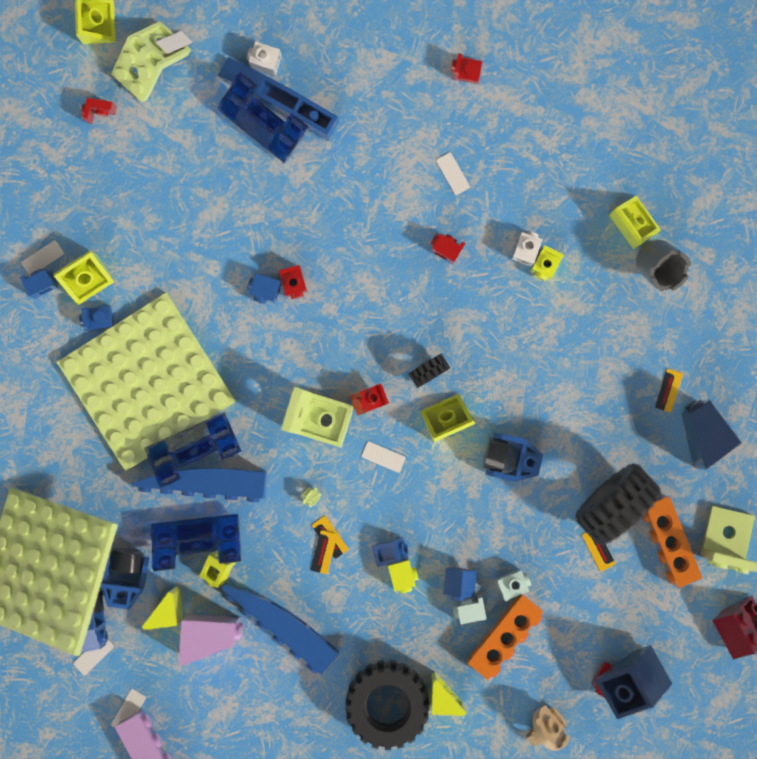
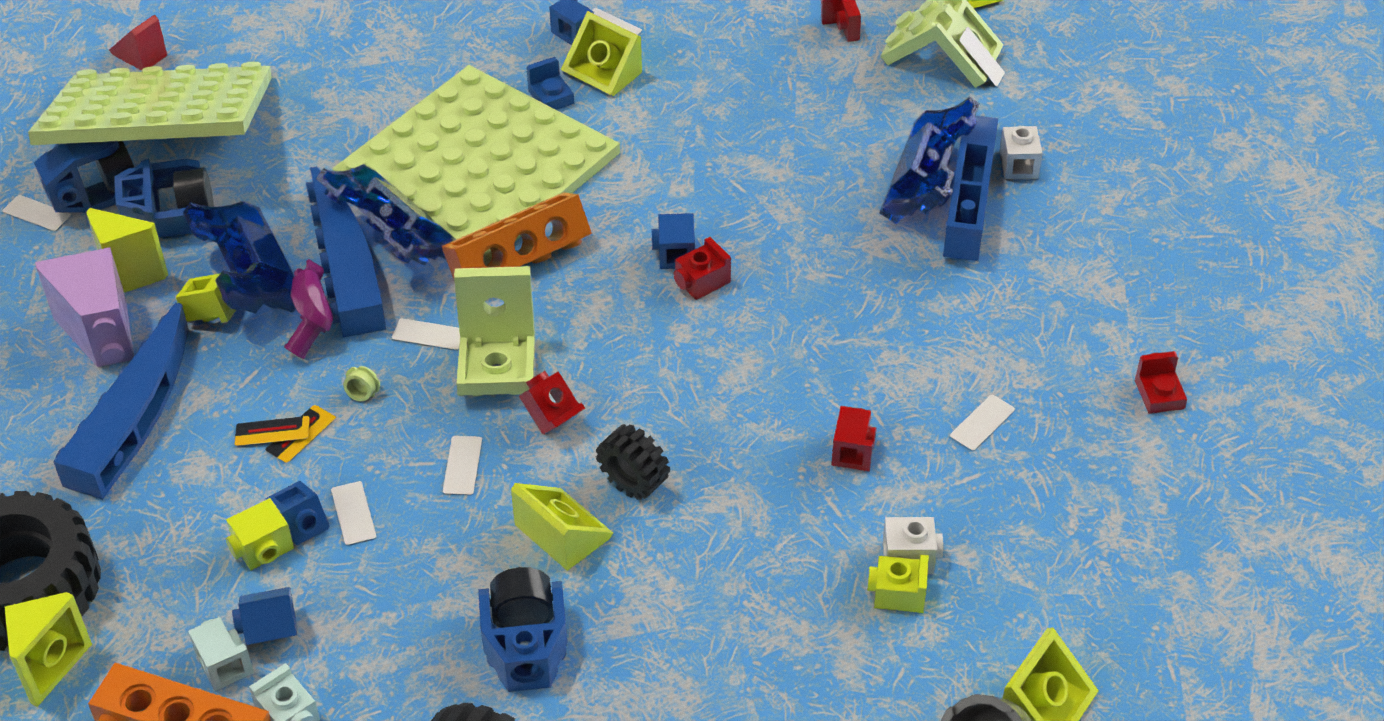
camera: 70 degrees right, 40 degrees down
(236, 380) = (568, 224): none -> orange brick
(248, 513) = (312, 305): none -> magenta arm
(280, 449) = (427, 334): none -> white sticker
(396, 522) = (353, 513): none -> white sticker

